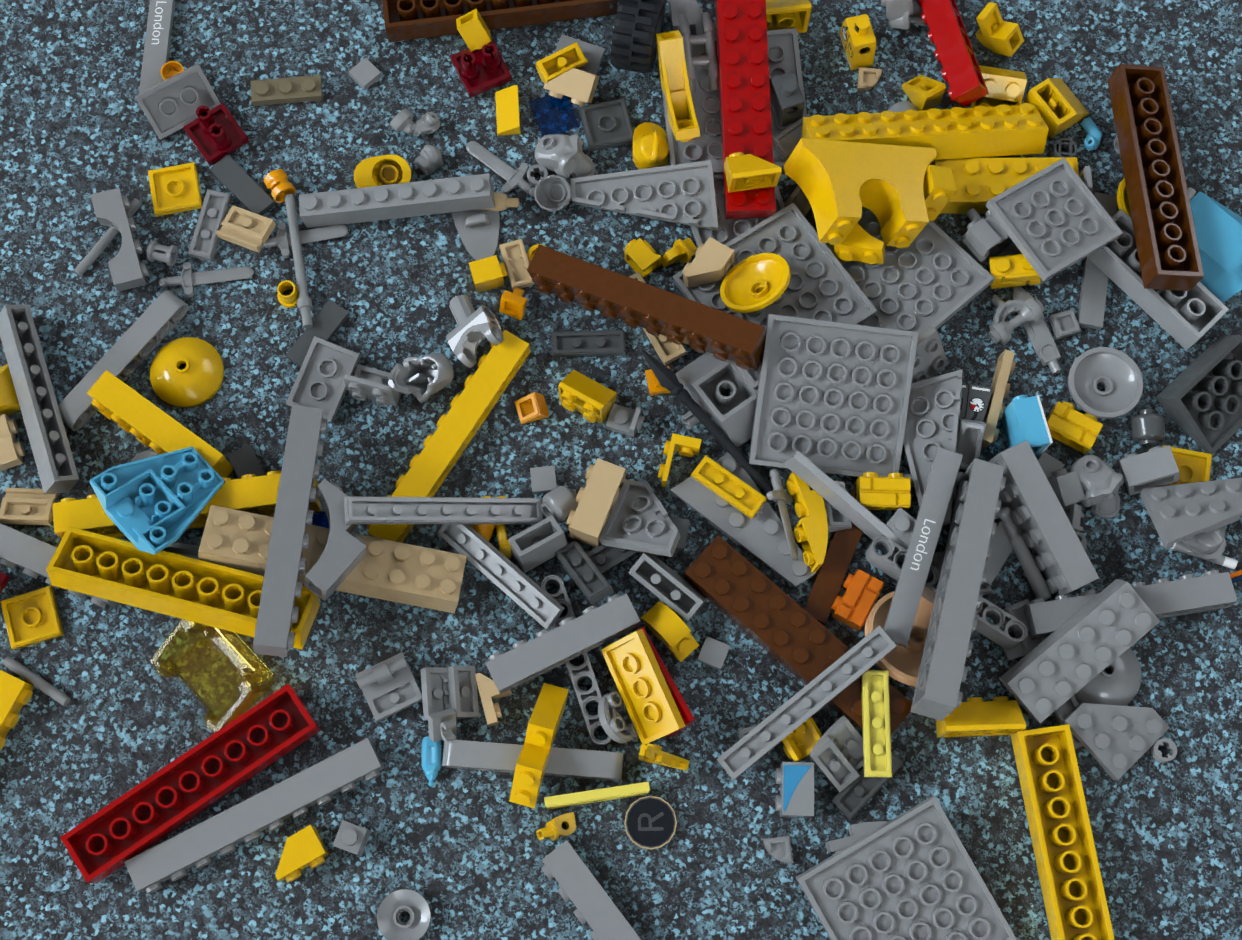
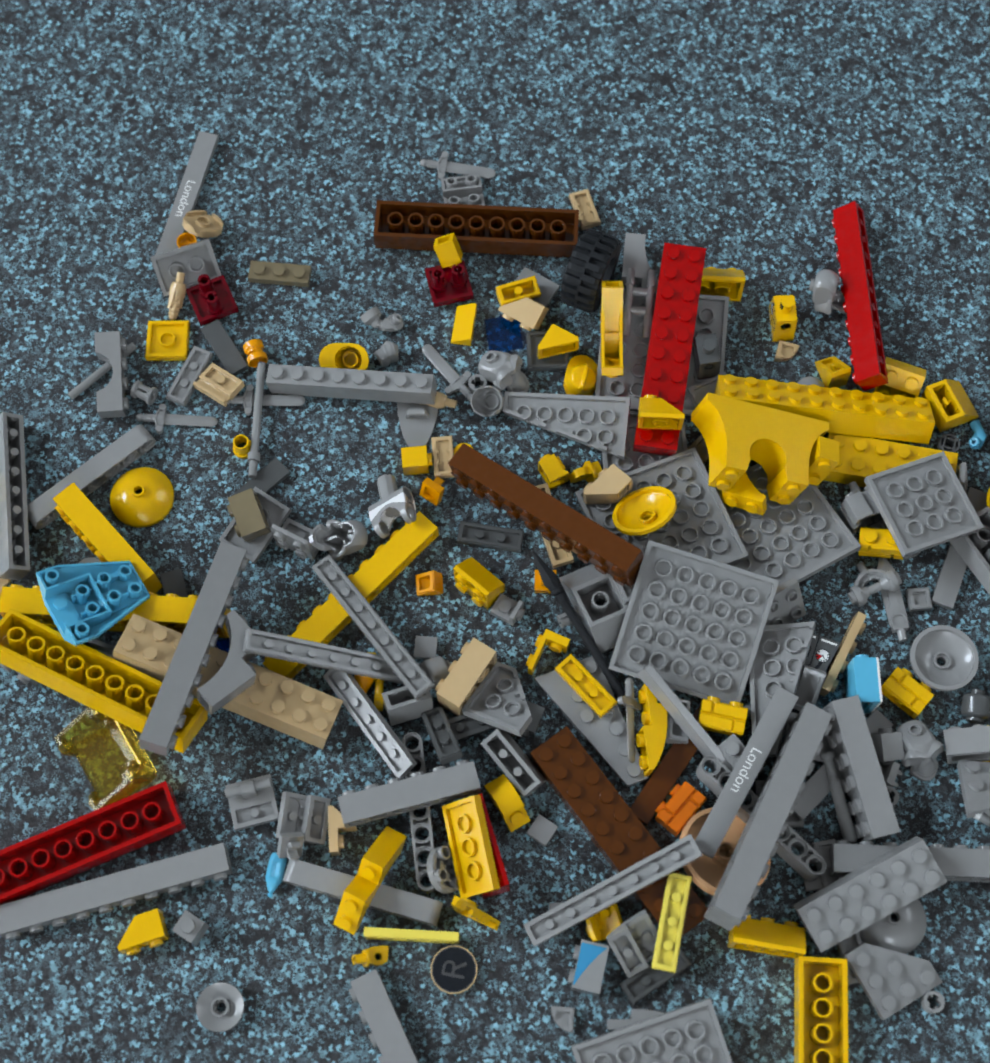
camera: 15 degrees right, 5 degrees down
(174, 136) = (176, 296): none -> tan piece
(186, 49) = (202, 224): none -> tan tile
(314, 370) = (248, 515): none -> dark tan brick
(365, 74) = (349, 271): light grey tile -> none
(482, 467) = (373, 627): none -> light grey tile
(617, 112) = (557, 342): none -> yellow slope
(996, 34) = (908, 332): yellow brick -> none

